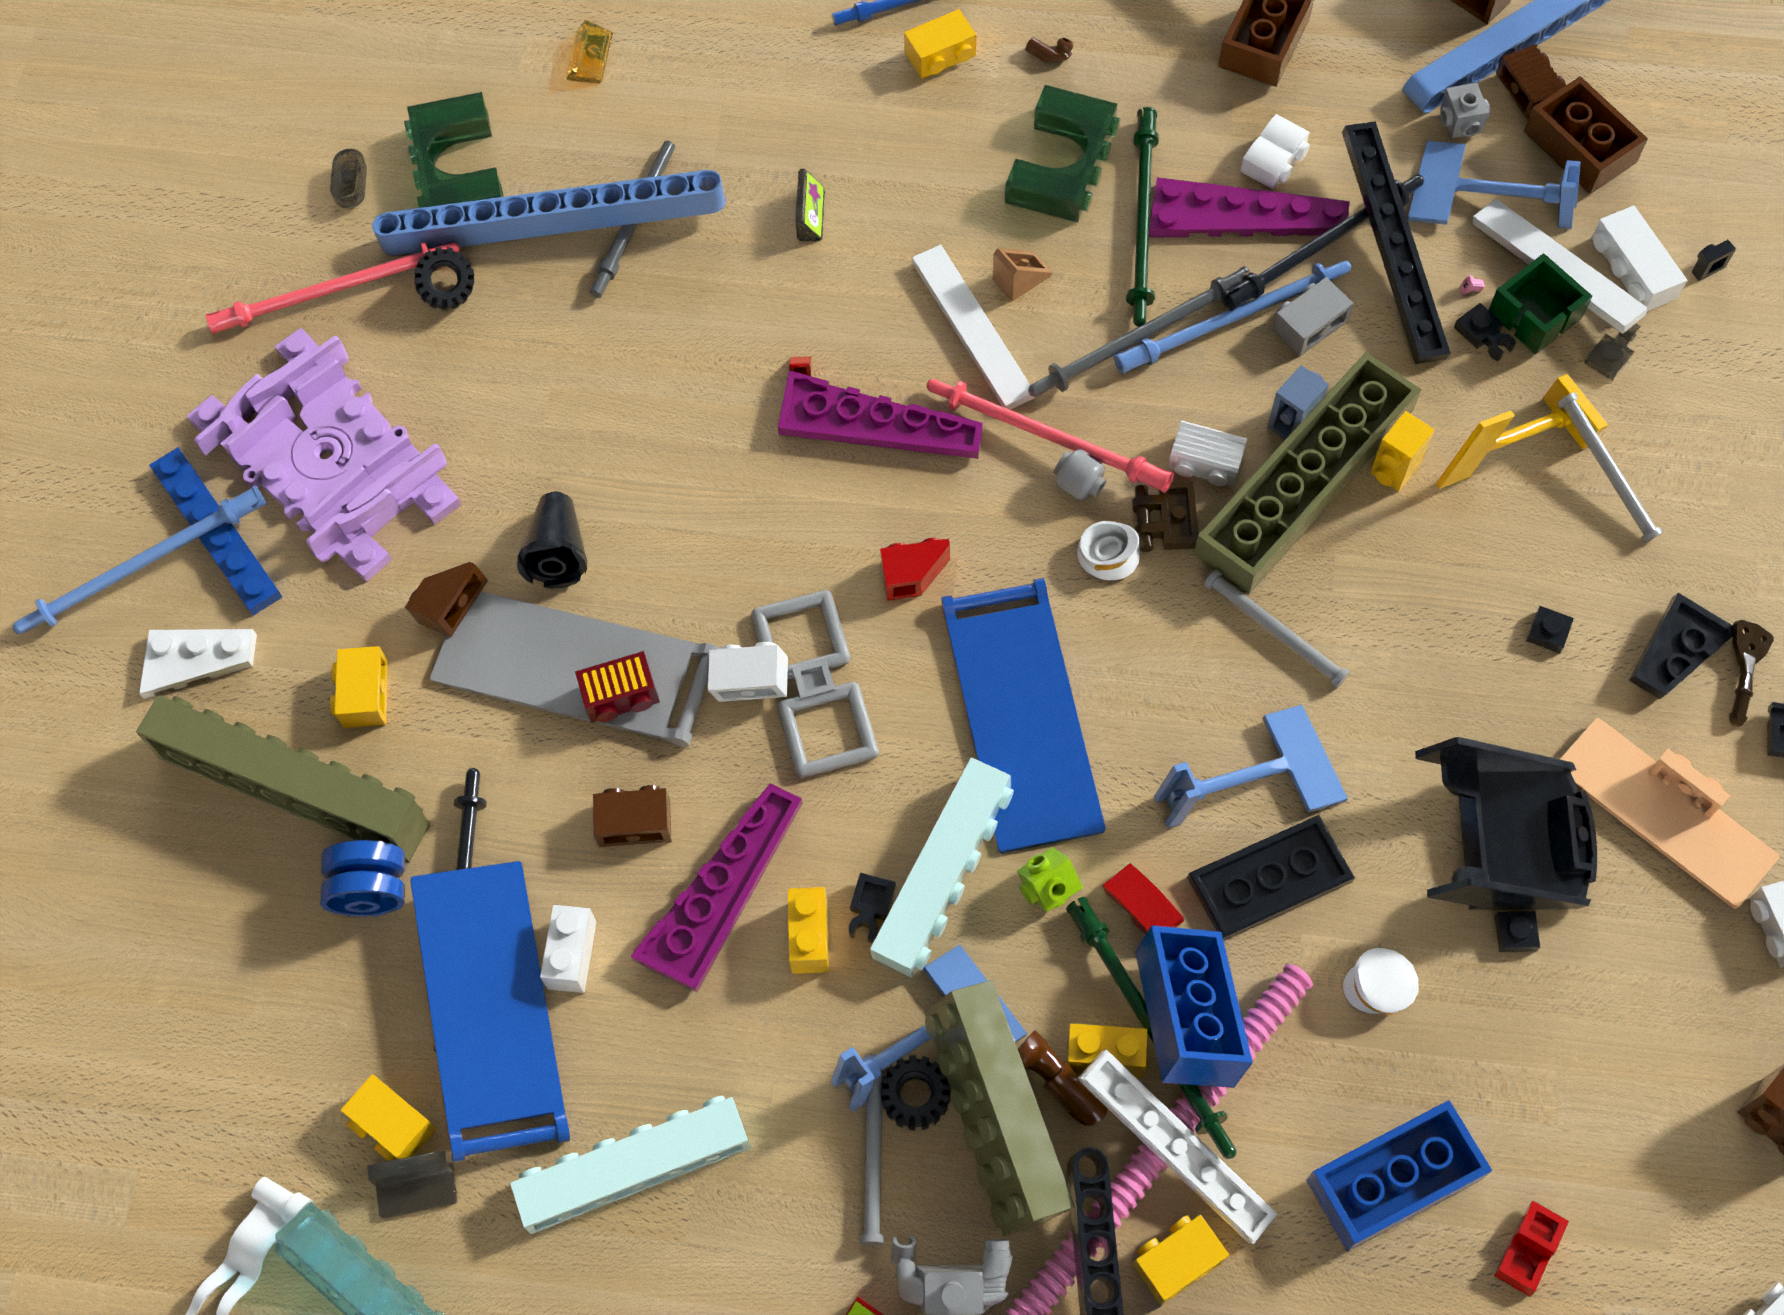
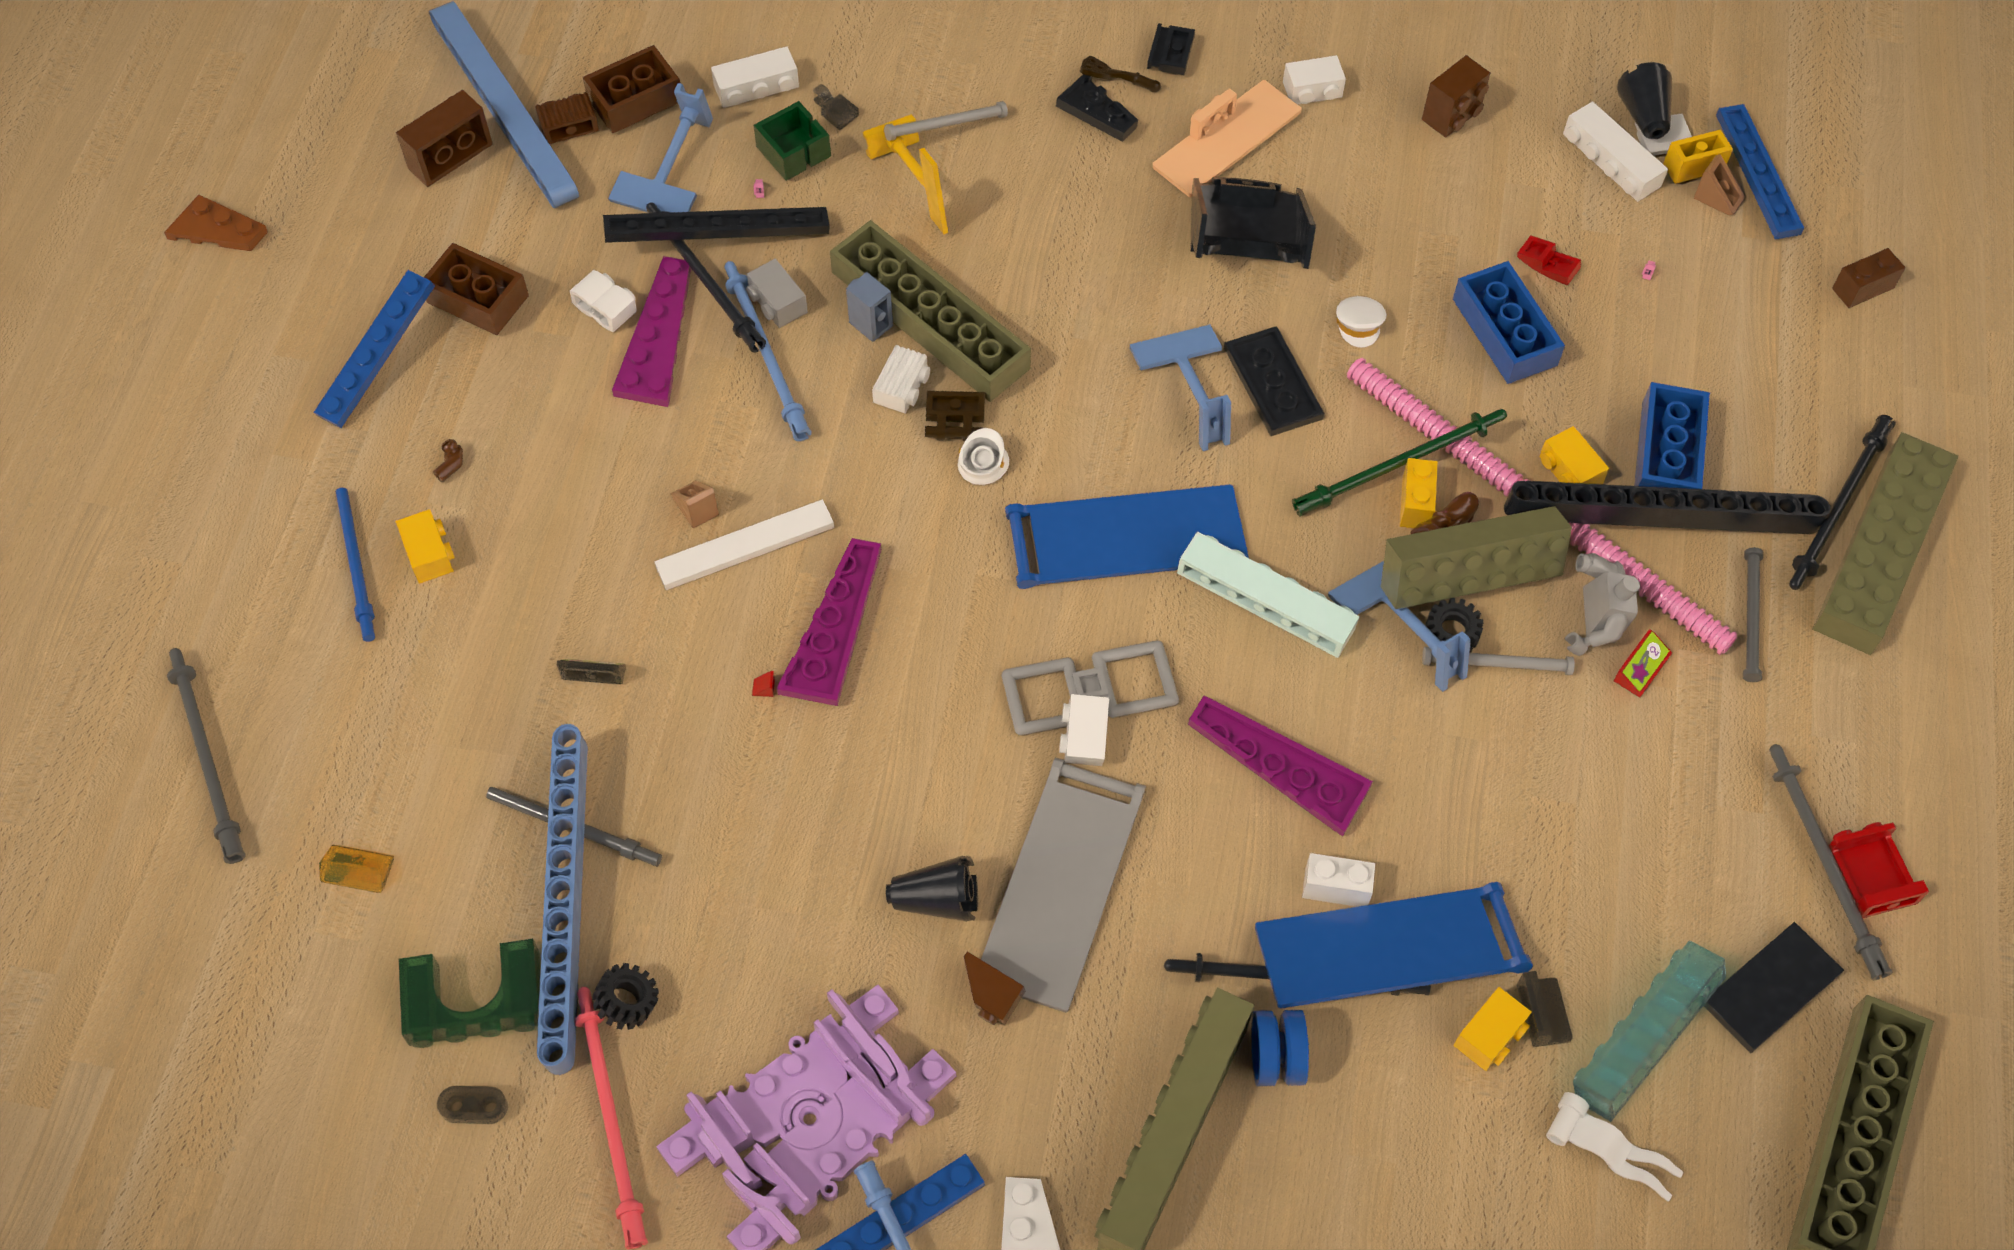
camera: 90 degrees left, 5 degrees down
(360, 687) = (1077, 1068): yellow brick -> none
(617, 687) = (1095, 835): dark red brick -> none
(629, 1165) = (1522, 836): light aqua brick -> none
(632, 816) = (1216, 830): reddish brown brick -> none
(808, 930) = (1321, 694): yellow brick -> none
(871, 901) = (1293, 649): black plate -> none
(913, 567) = (991, 602): red slope -> none
(1049, 879) = (1280, 519): lime brick -> none
(1060, 376) = (738, 355): dark grey bar -> none
(1067, 189) = (549, 431): clear green arch -> none
(1080, 474) = (912, 469): light grey head -> none
(1136, 468) = (915, 426): coral bar -> none
(1142, 900) = (1295, 461): red slope -> none
(1145, 139) = (570, 394): dark green bar -> none
(1177, 1146) = (1494, 451): white tile -> none
(1192, 1007) = (1392, 424): blue brick -> none
(1277, 628) = (1017, 388): light grey bar -> none
(1401, 451) = (922, 238): yellow brick -> none
(1464, 110) = (591, 164): light grey brick -> none
(1481, 328) = (804, 187): black plate -> none
(1517, 931) = (1323, 237): black plate -> none
(1529, 243) = (741, 133): white tile -> none
(1550, 629) = (1075, 182): black plate -> none
(1713, 259) = (763, 33): black plate -> none

